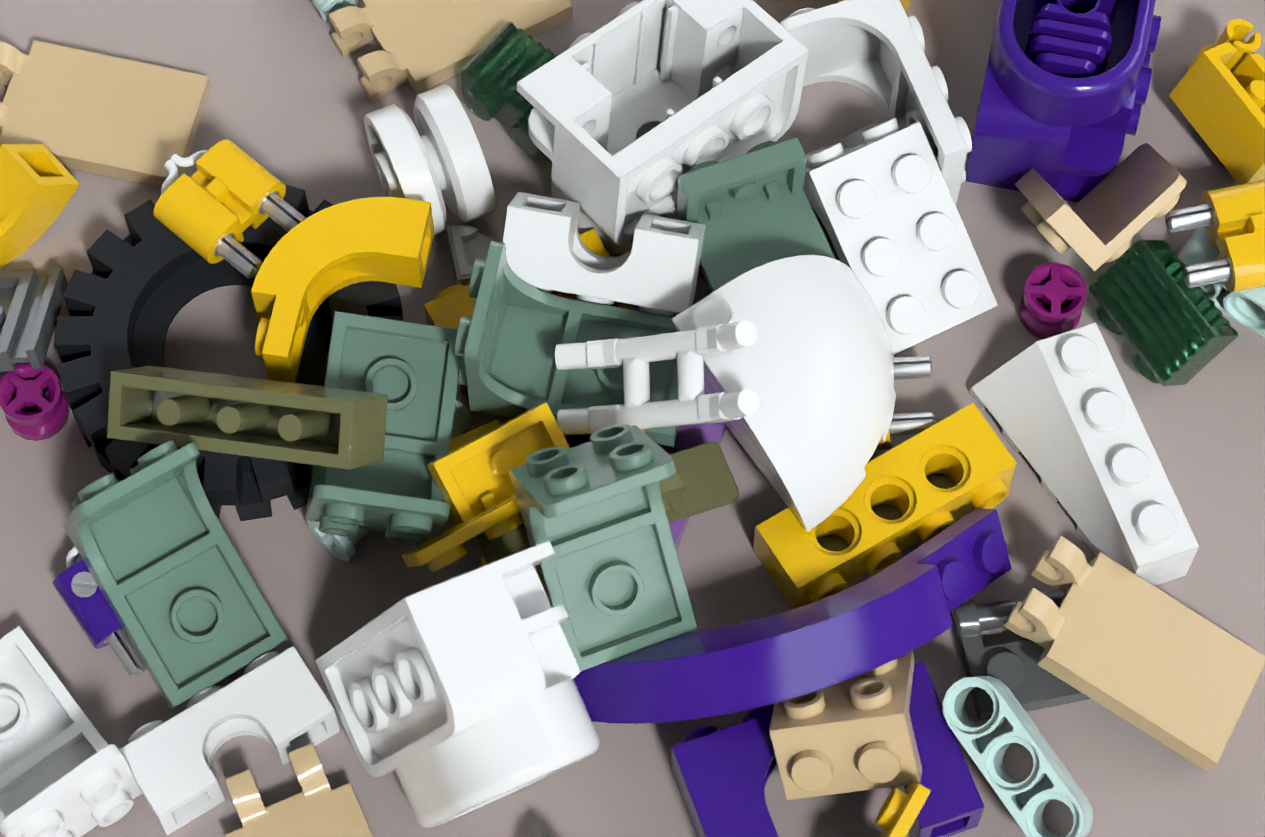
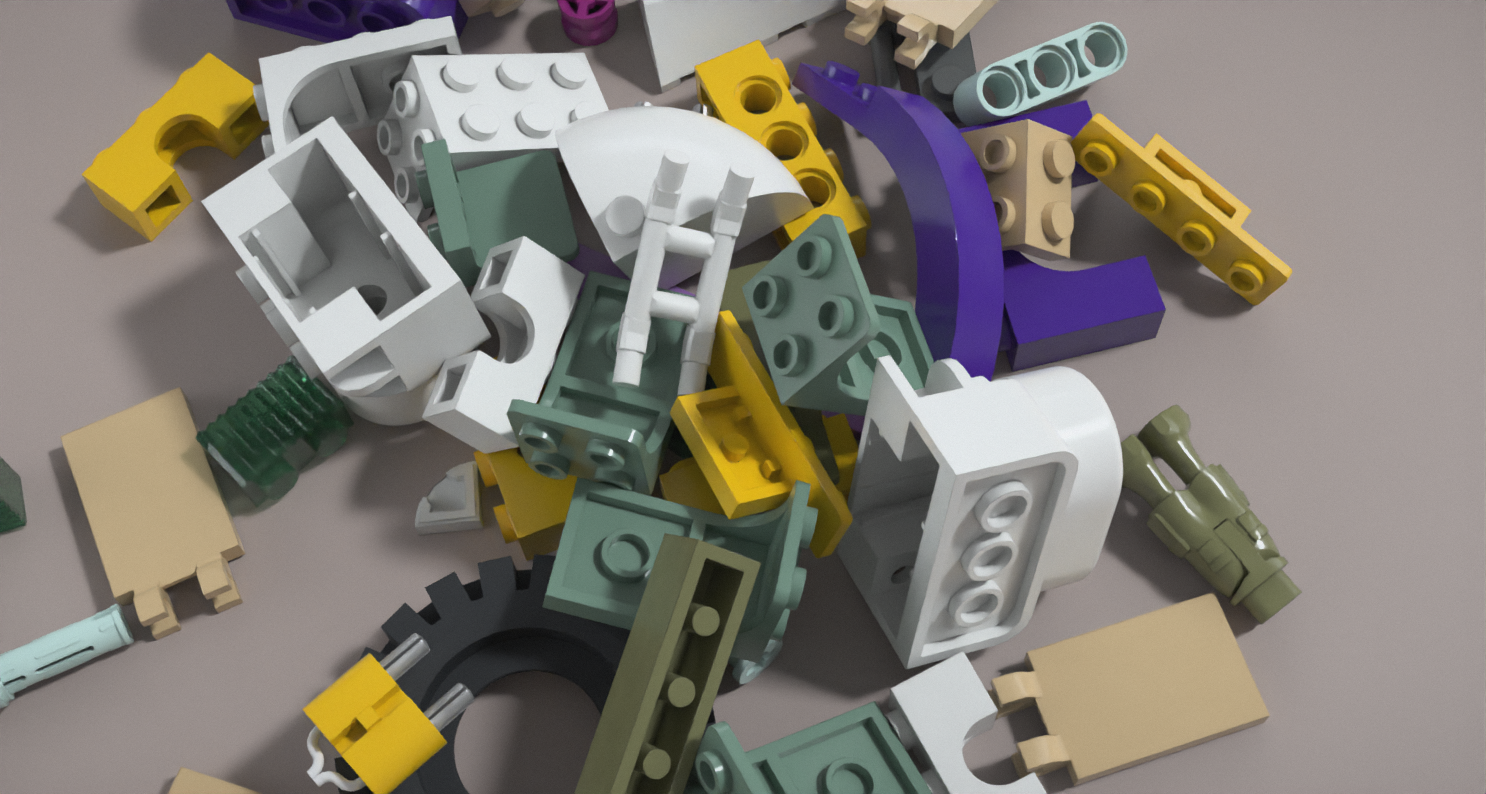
camera: 80 degrees left, 0 degrees up
(326, 252) = (451, 576): yellow arch -> none
(434, 158) = (353, 520): white wheel -> none

